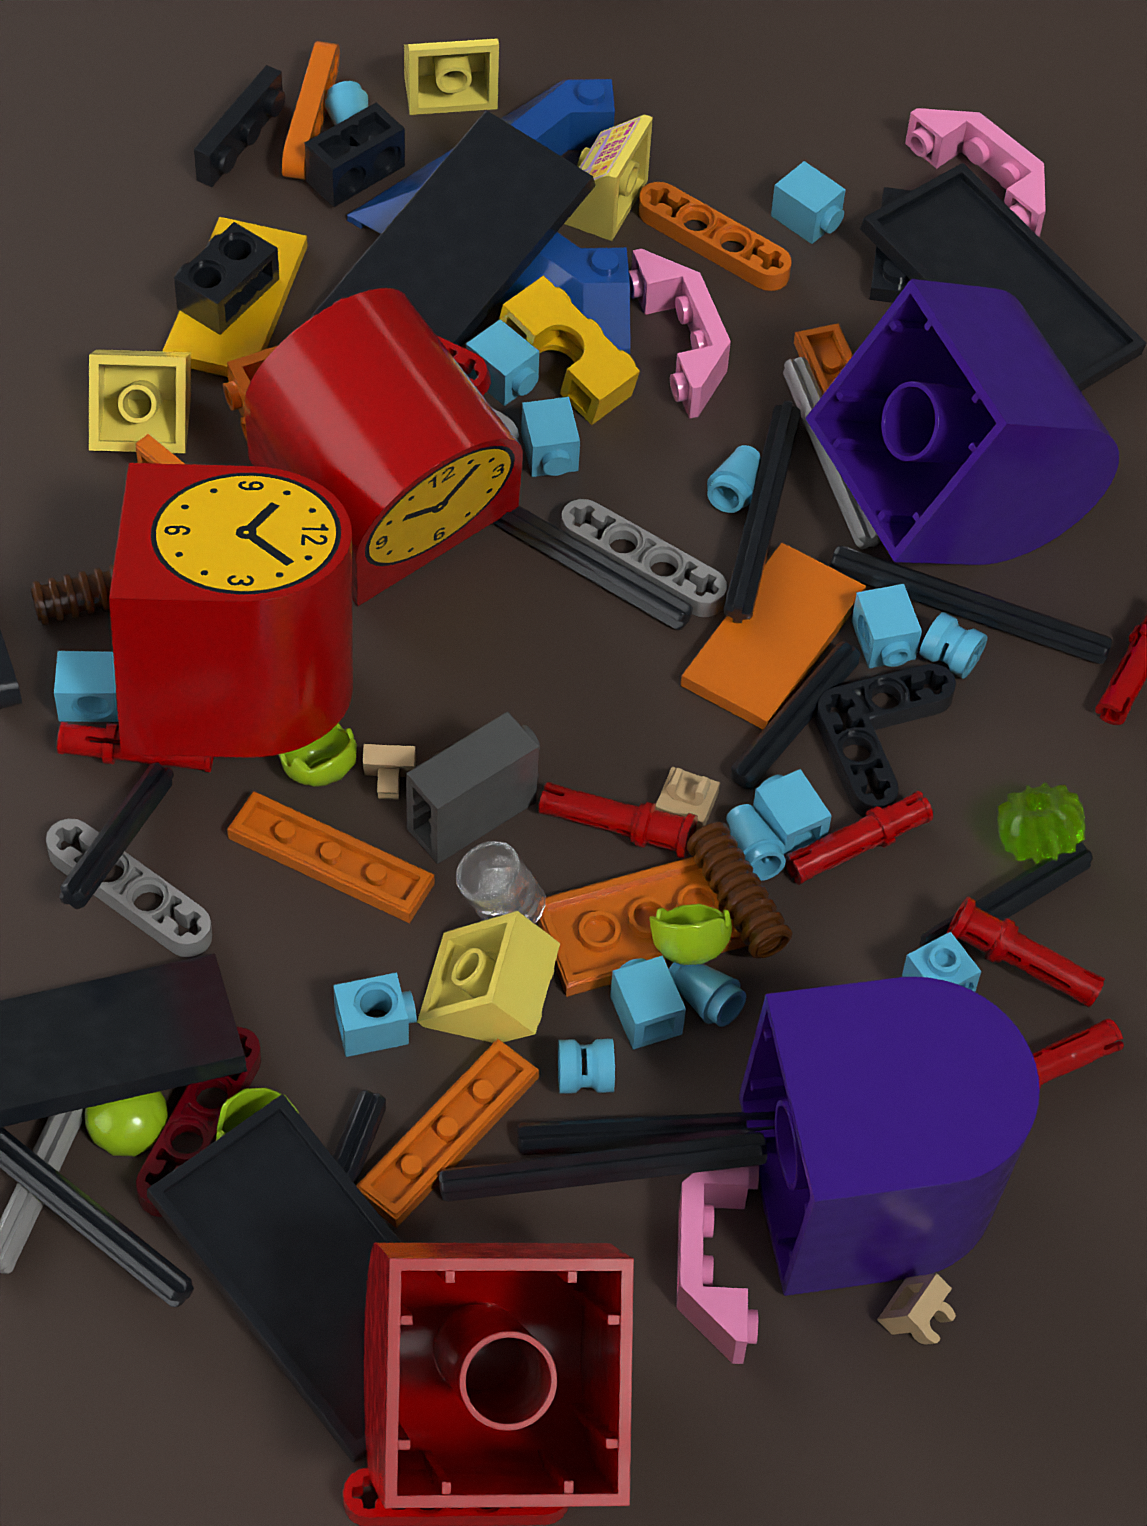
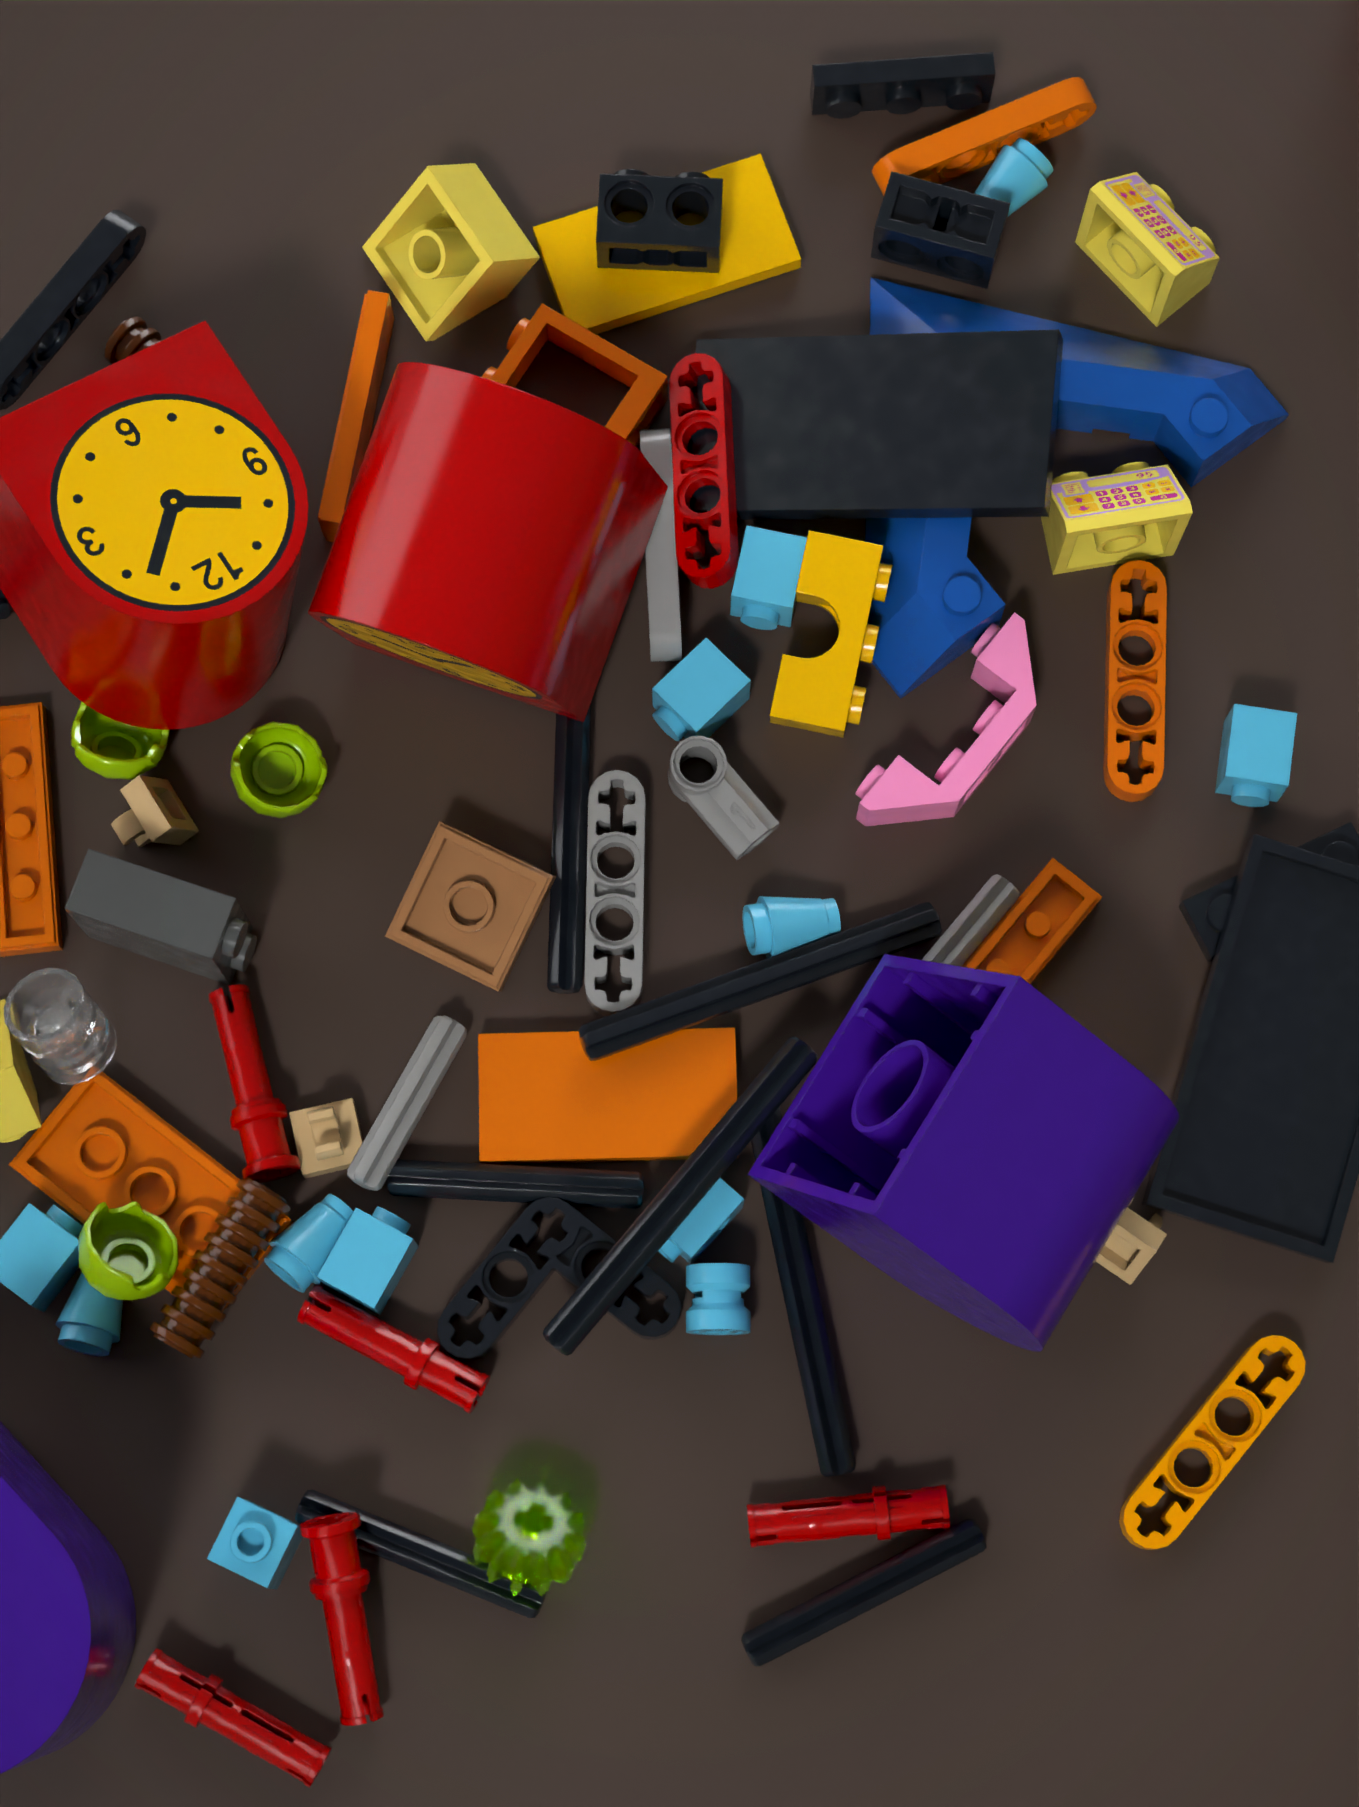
camera: 60 degrees right, 20 degrees up
(417, 680) = (278, 769): none -> lime hair
(592, 632) = (470, 906): none -> medium nougat tile
(609, 465) = (724, 800): none -> light grey piece
(699, 737) = (407, 1103): none -> light grey axle
(881, 609) = (679, 1196): none -> black axle

